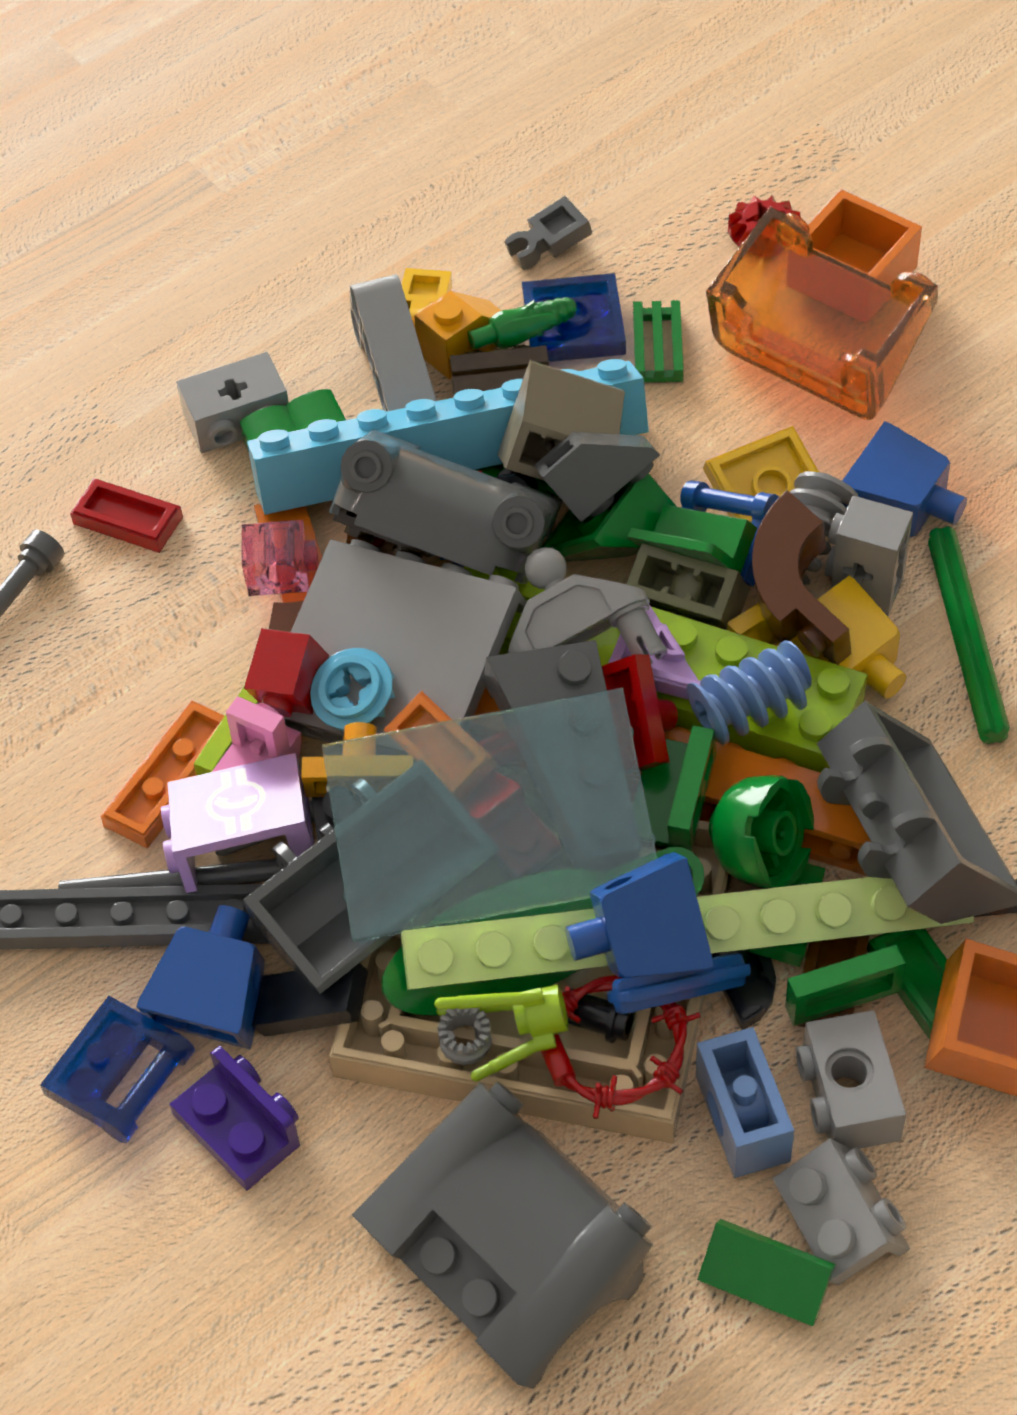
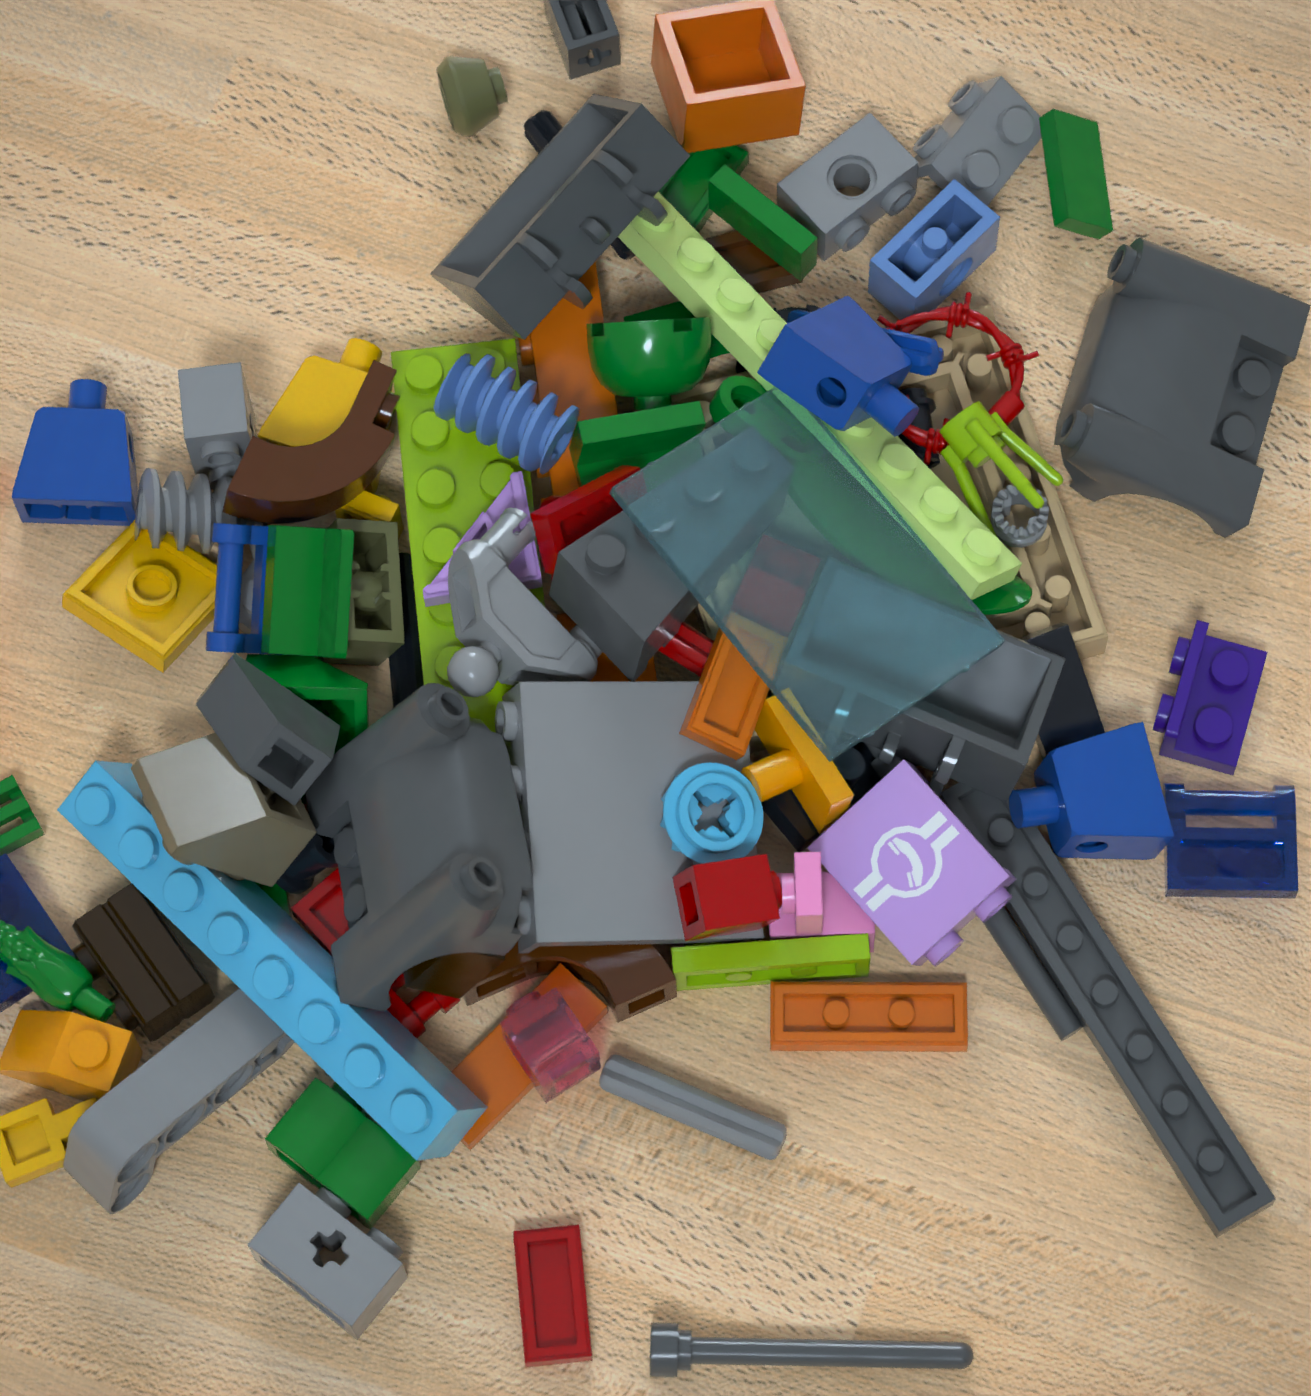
camera: 120 degrees left, 15 degrees up
(185, 640) = (693, 1107): none -> light grey axle
(968, 636) = (247, 318): green axle -> none

